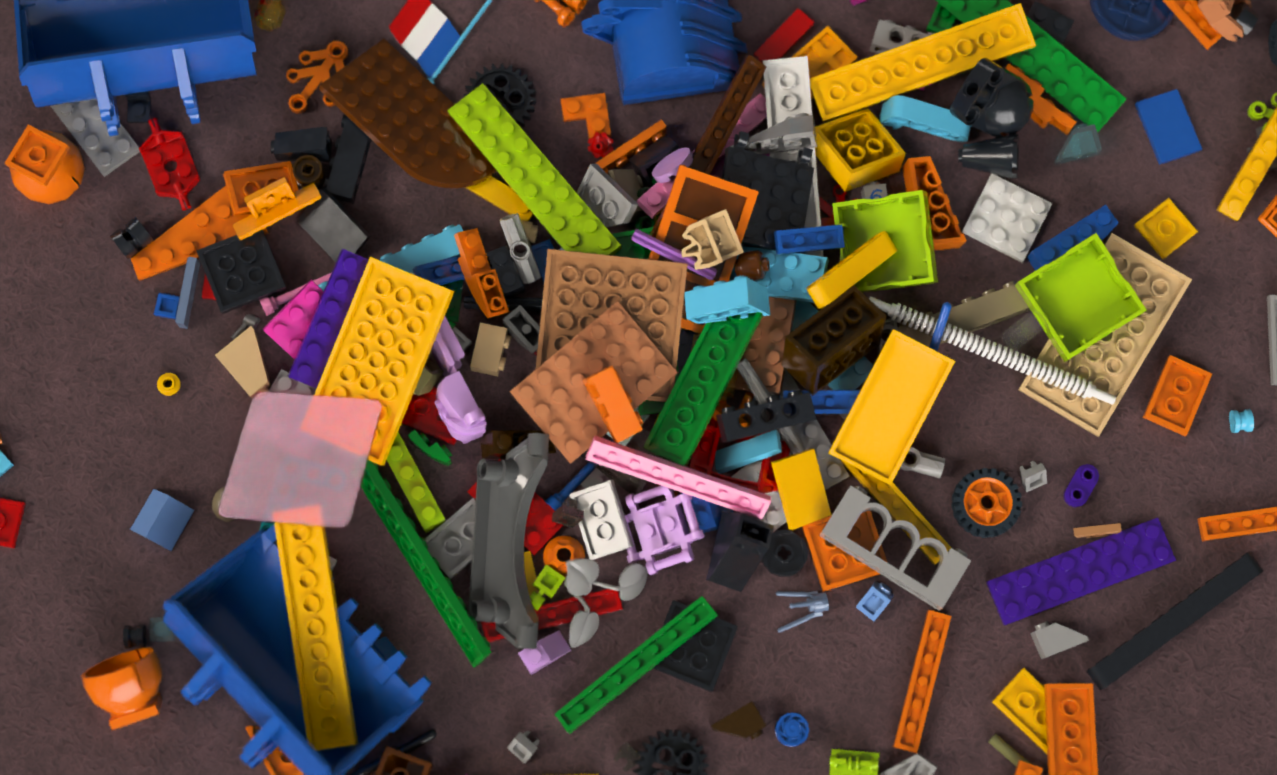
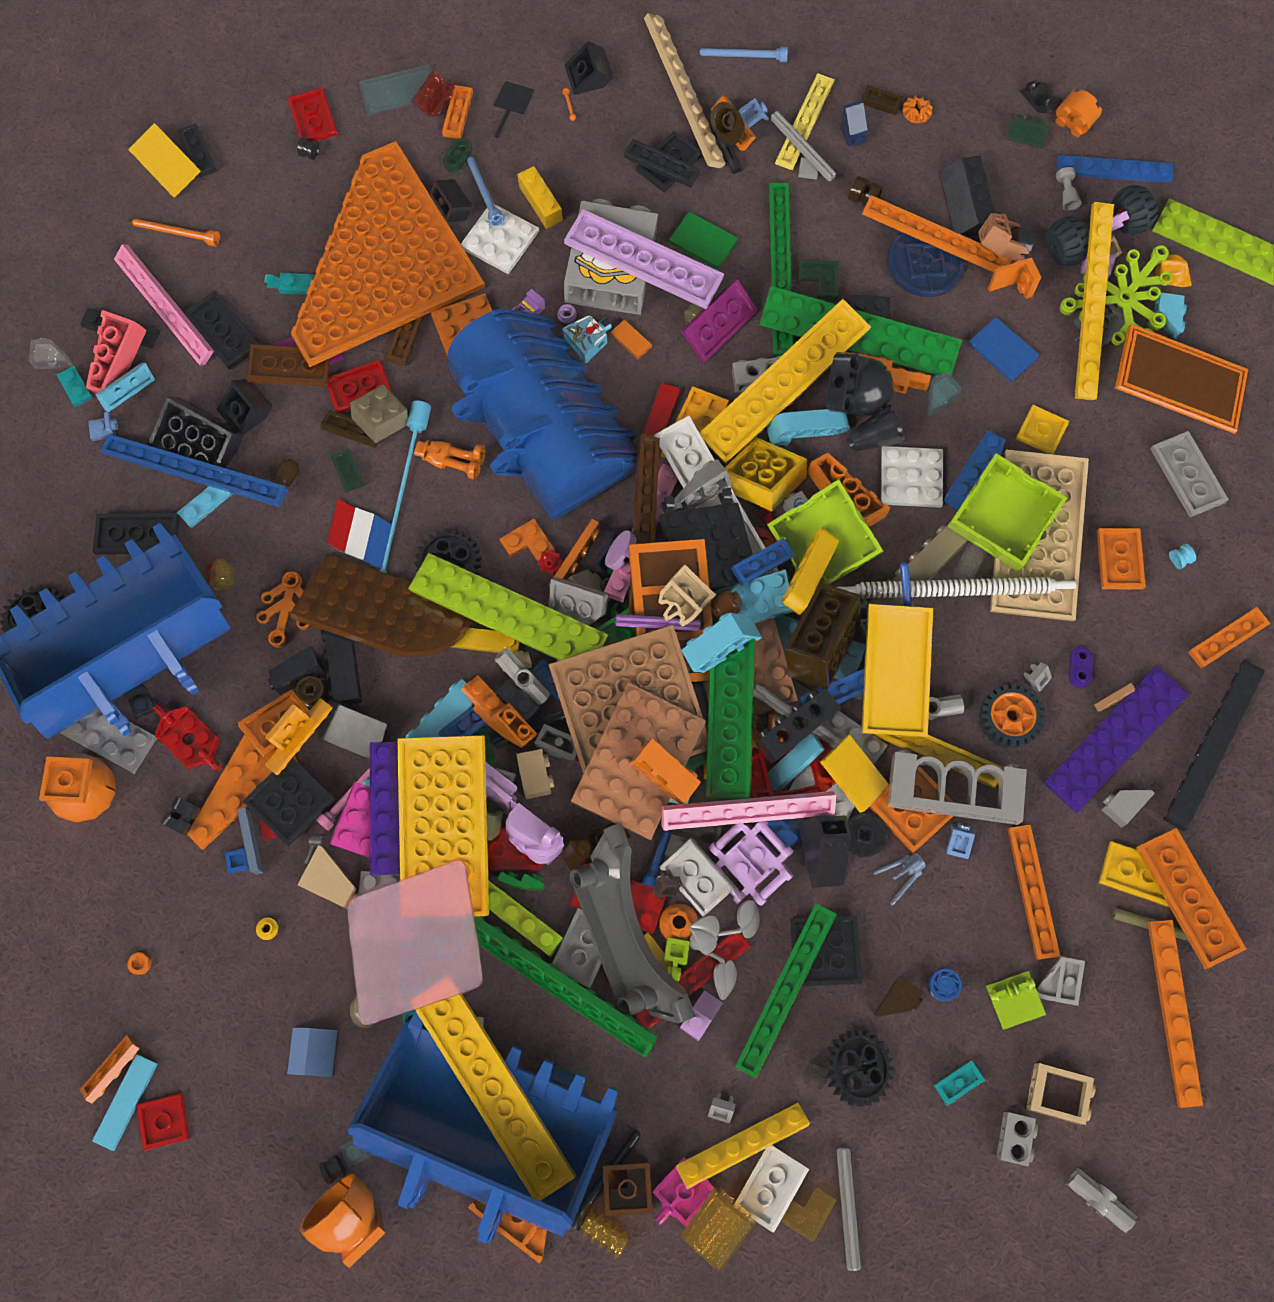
camera: 15 degrees left, 5 degrees down
(34, 362) = (139, 963): none -> orange tile
(1223, 52) = (1021, 272): none -> orange bracket

